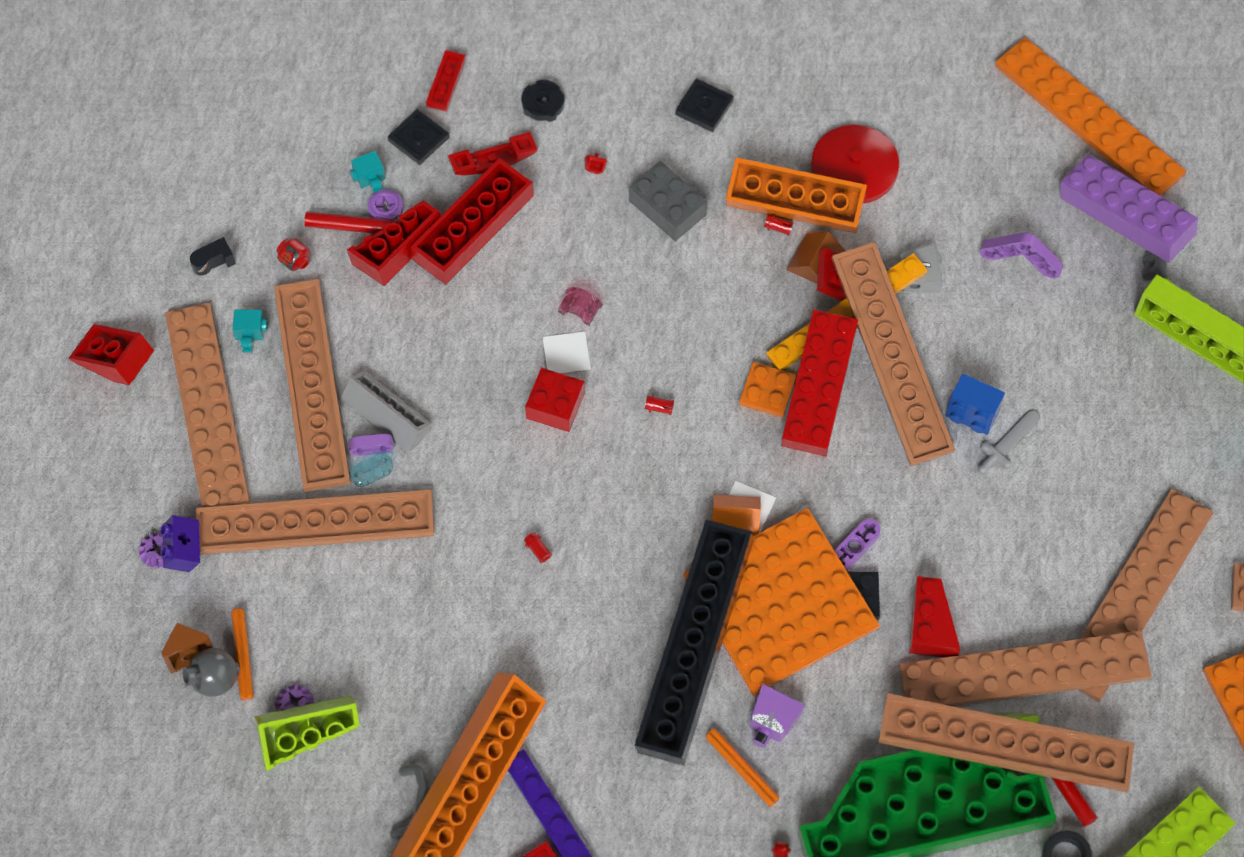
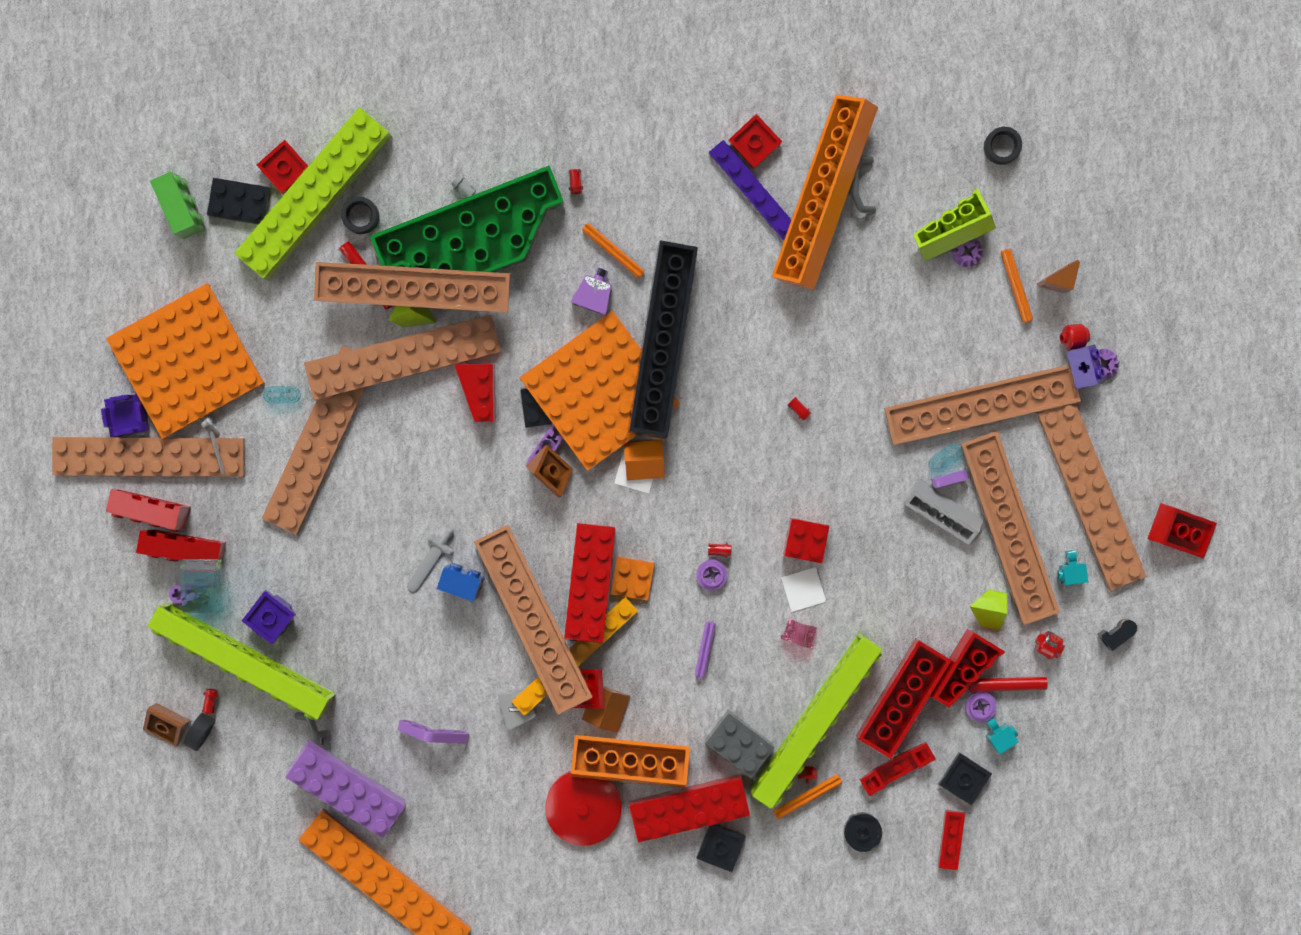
camera: 170 degrees right, 25 degrees up
(185, 582) = (1074, 336): none -> red head
(211, 672) = (1037, 261): dark grey brick -> none
(213, 808) = (1005, 131): none -> black tyre
(351, 302) = (990, 609): none -> lime slope
(574, 211) = (815, 721): none -> lime brick
(598, 142) = (807, 796): none -> orange axle
(679, 373) = (720, 578): none -> medium lavender gear
(692, 303) = (705, 649): none -> medium lavender axle
(716, 144) = (689, 808): none -> red brick
(778, 224) = (643, 735): red pin -> none
(853, 512) = (550, 470): none -> dark orange slope
(1181, 652) = (282, 399): none -> clear light blue beam
(1208, 399) = (269, 616): none -> dark purple panel

